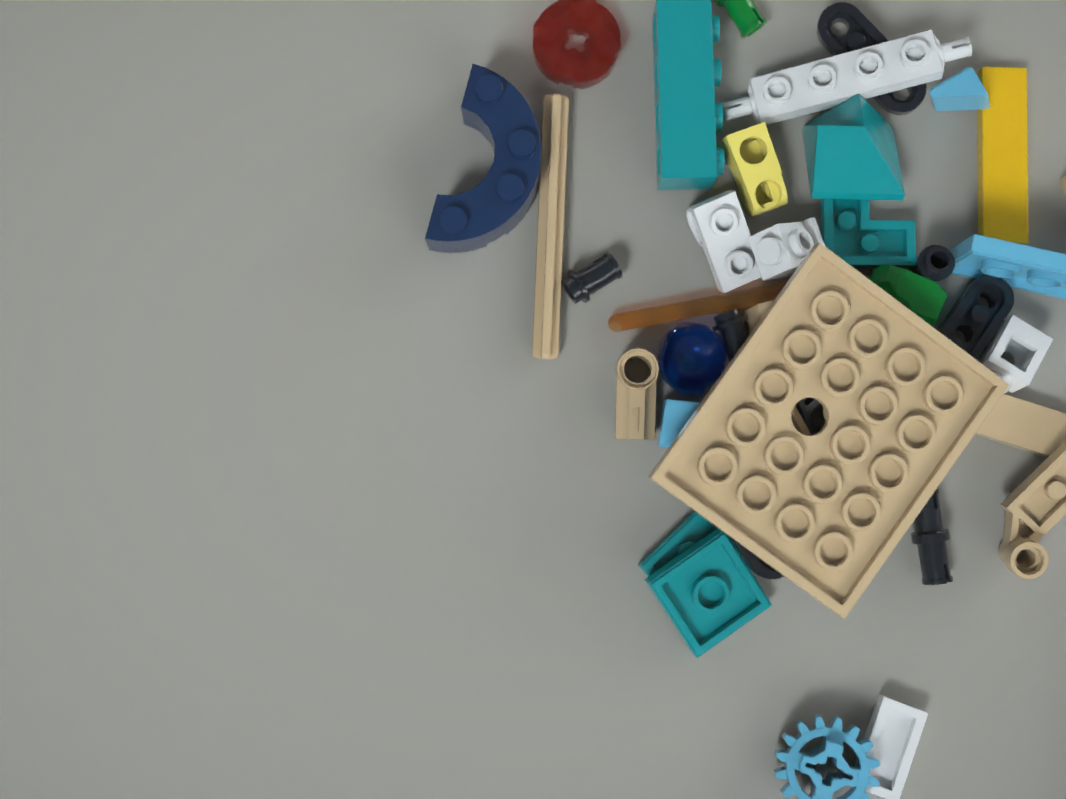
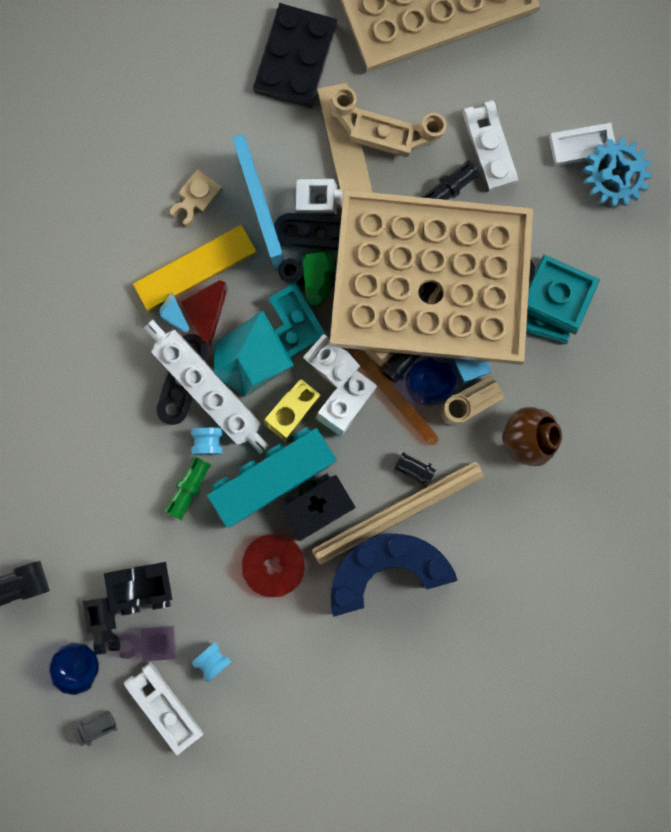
camera: 120 degrees left, 0 degrees up
(547, 441) = (532, 436): none -> reddish brown plant
(610, 106) = (307, 522): none -> black brick
(775, 44) = (206, 441): none -> medium azure wheel
(941, 136) = (205, 310): none -> clear red slope
(952, 623) = (490, 146): none -> white plate

